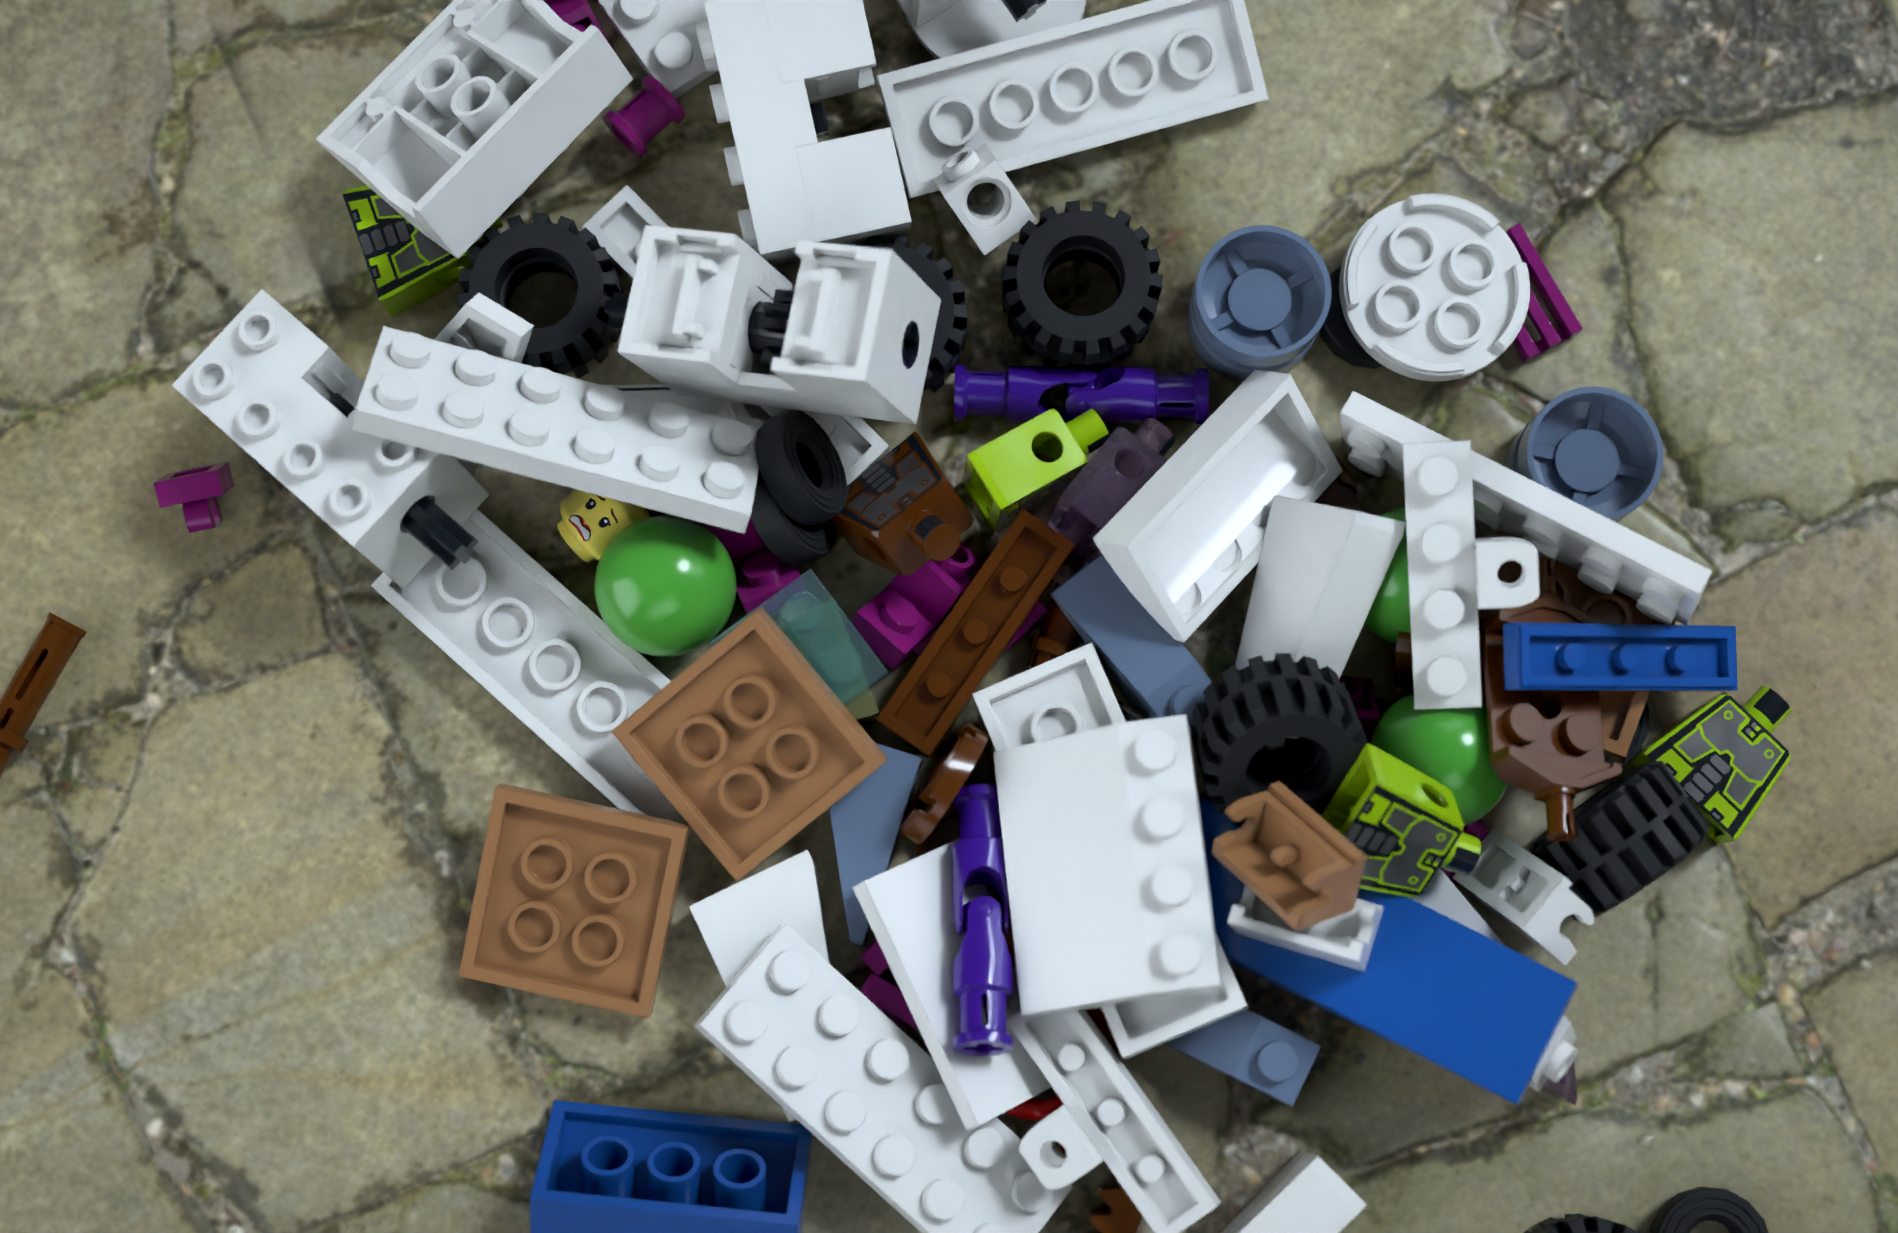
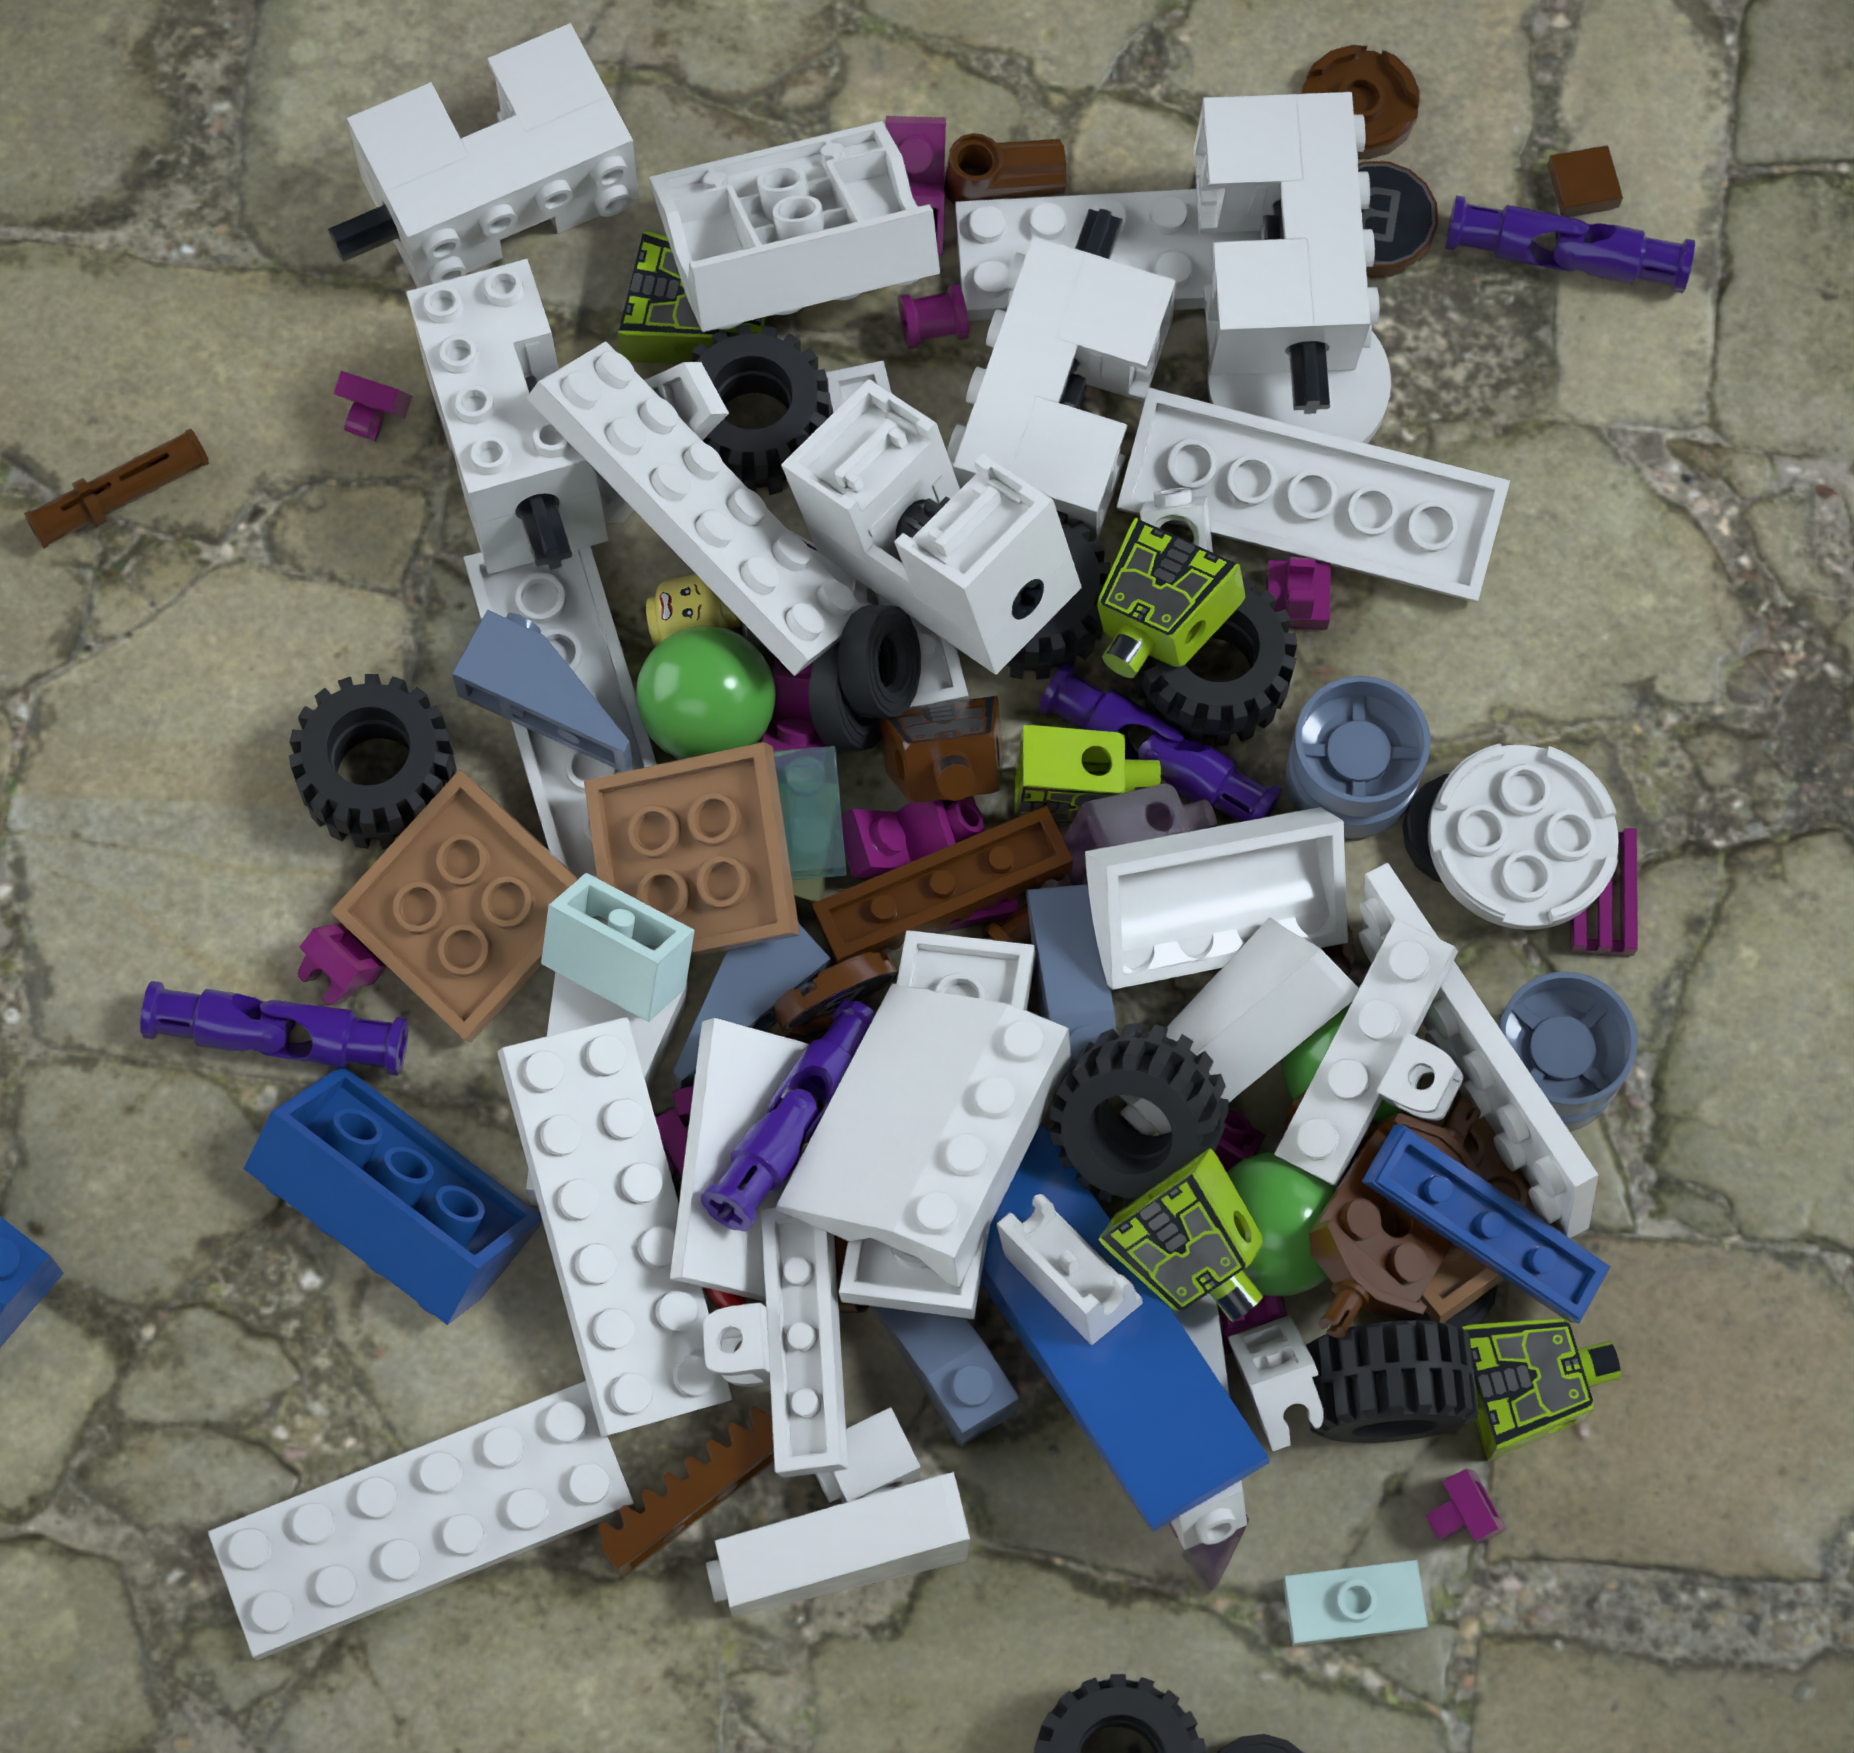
camera: 30 degrees right, 10 degrees down
(156, 263) = (453, 199): none -> white piece
(359, 802) = (356, 716): none -> black tyre
(466, 1111) = (246, 1023): none -> dark purple piece
(494, 1013) = (341, 958): none -> magenta tile
(500, 669) = (527, 681): none -> sand blue slope
(739, 869) = (617, 946): none -> light aqua brick
(1017, 266) = (1164, 599): none -> torso
(1111, 179) = (1302, 590): none -> magenta tile
(1228, 1165) = (876, 1460): none -> white brick
(1291, 857) = (1084, 1200): medium nougat hinge -> none
(1686, 1035) = (1355, 1603): none -> light aqua plate
(1733, 903) = (1467, 1509): none -> magenta tile

